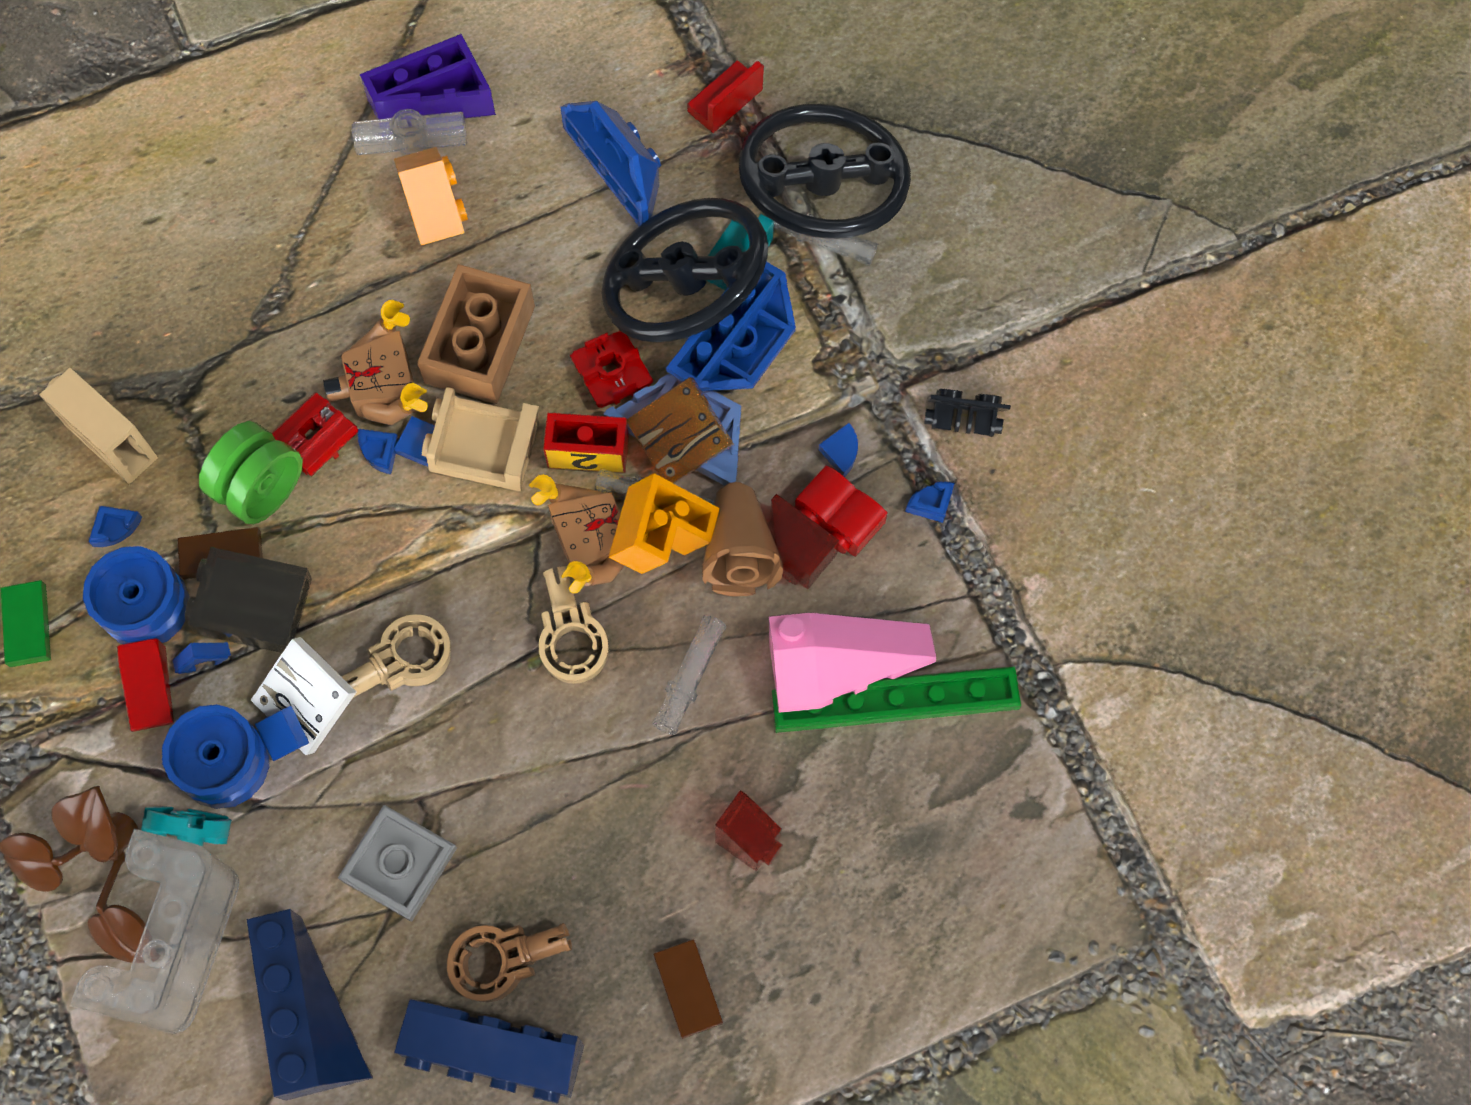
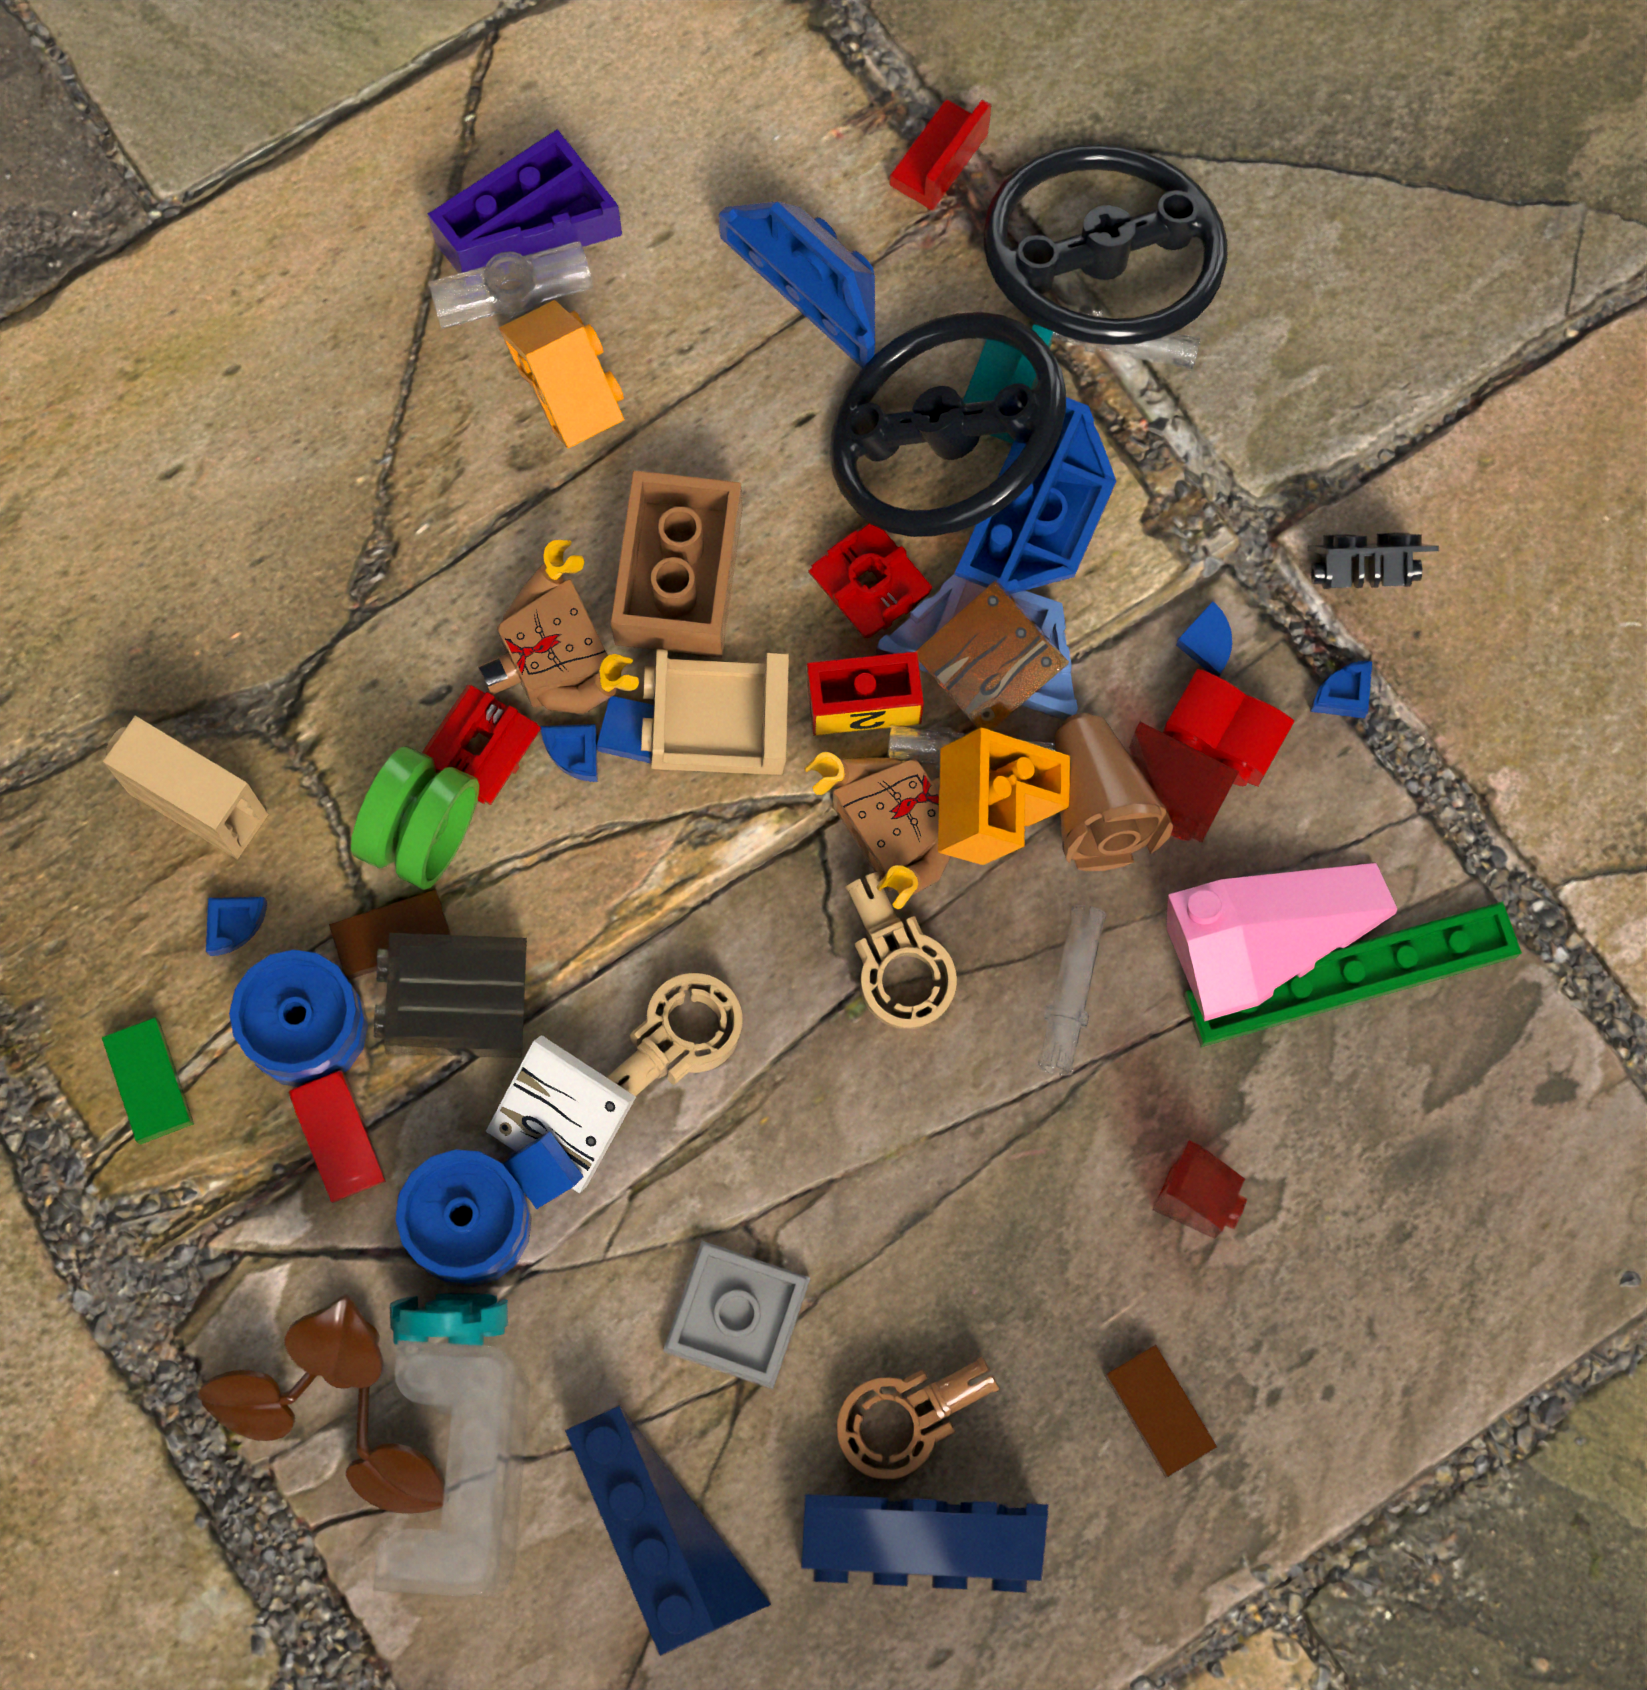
camera: 10 degrees left, 5 degrees up
(199, 653) = (400, 1080): blue tile -> none

